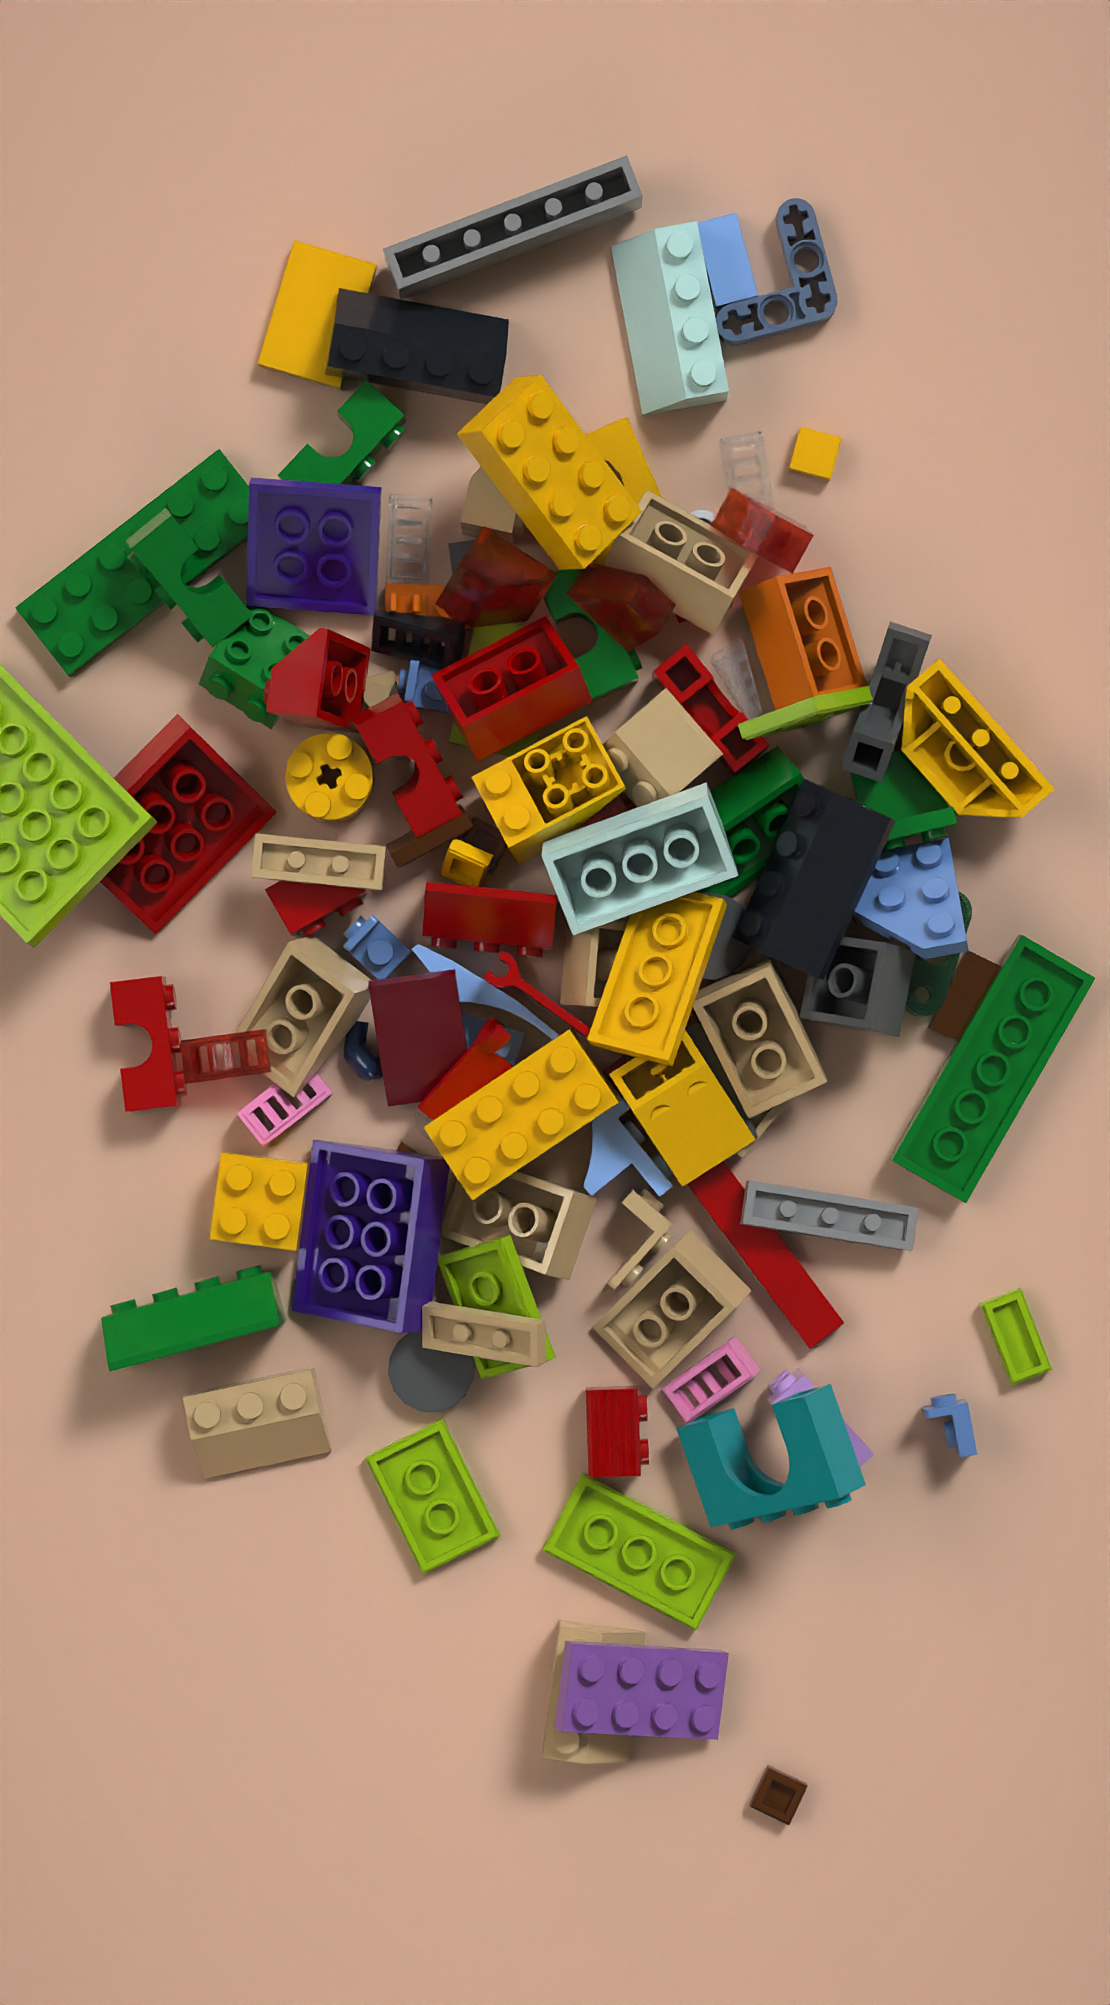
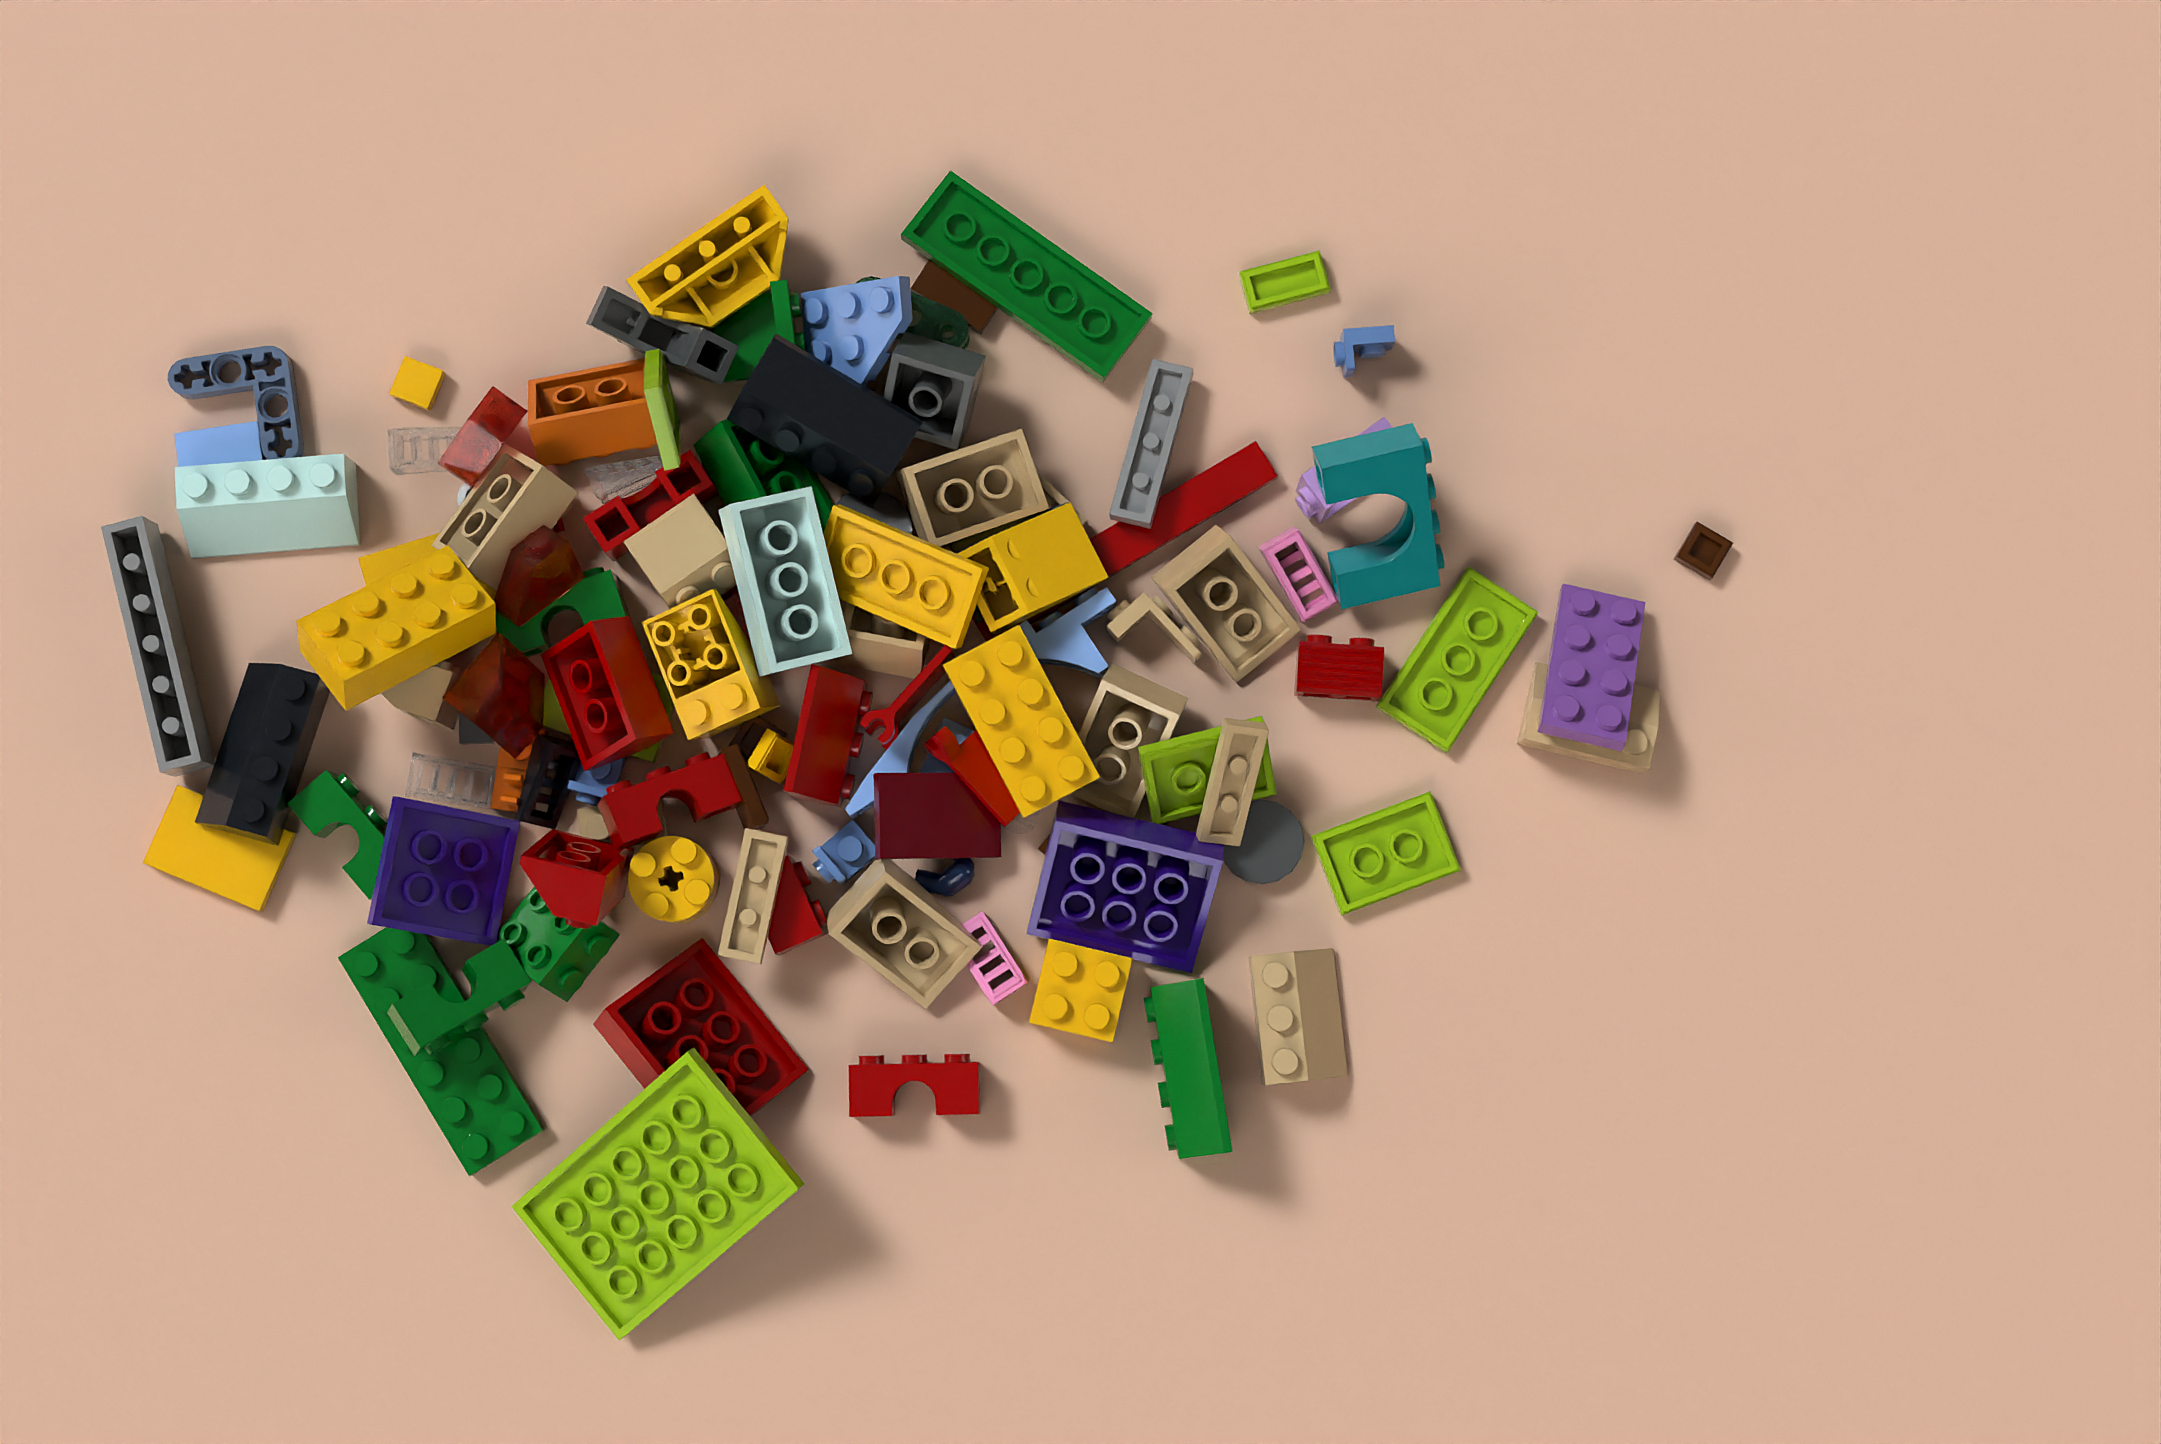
camera: 85 degrees left, 5 degrees down
(193, 1063) = (942, 1044): clear red slope -> none

